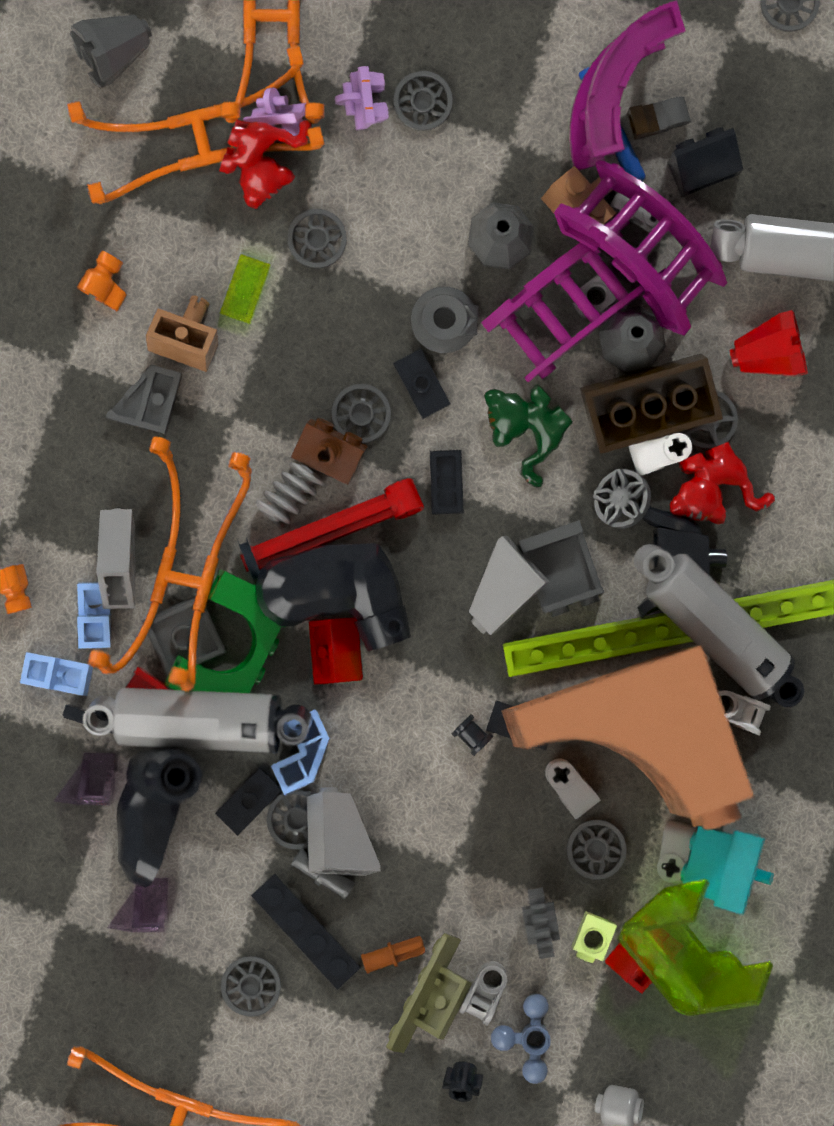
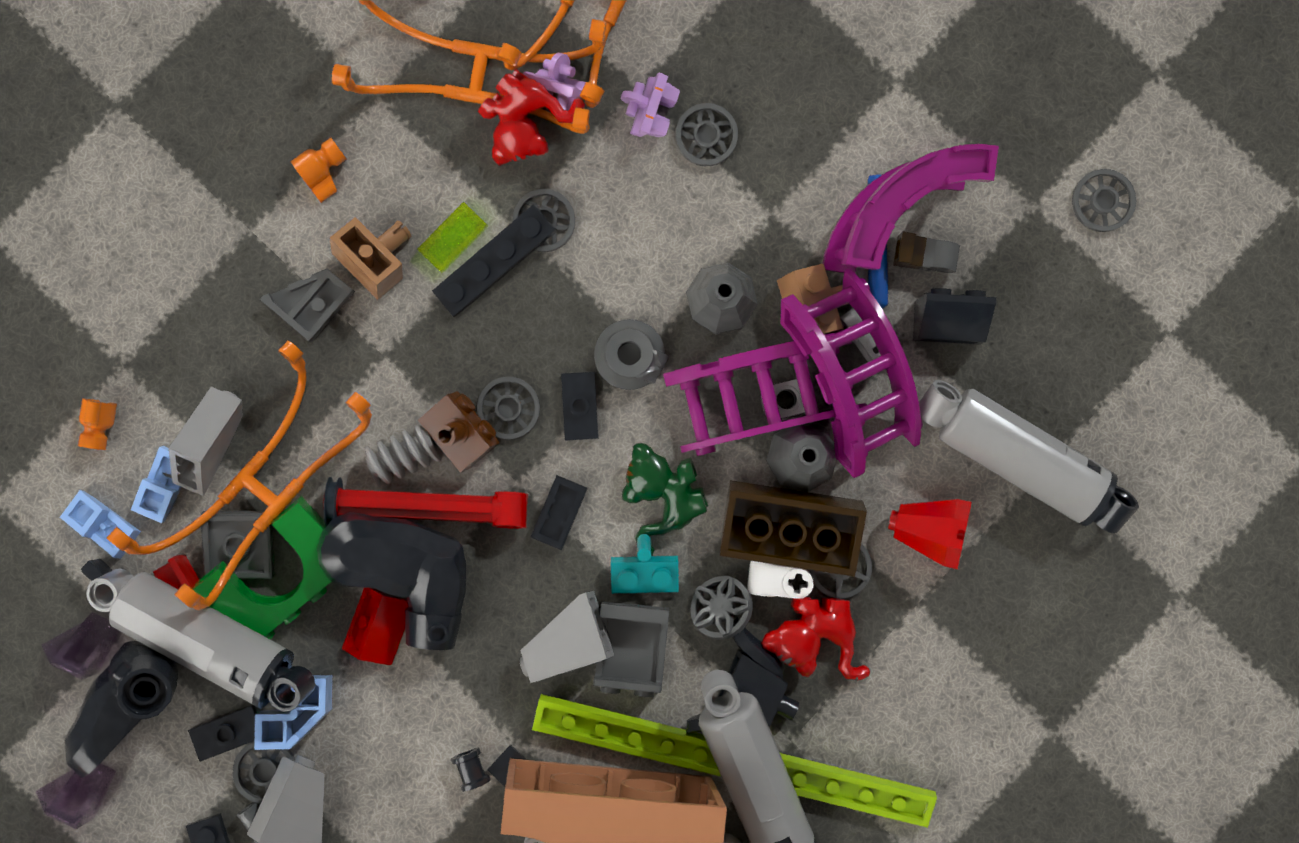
camera: 30 degrees right, 0 degrees up
(291, 292) = (494, 260): none -> black plate
(543, 499) = (644, 572): none -> teal plate

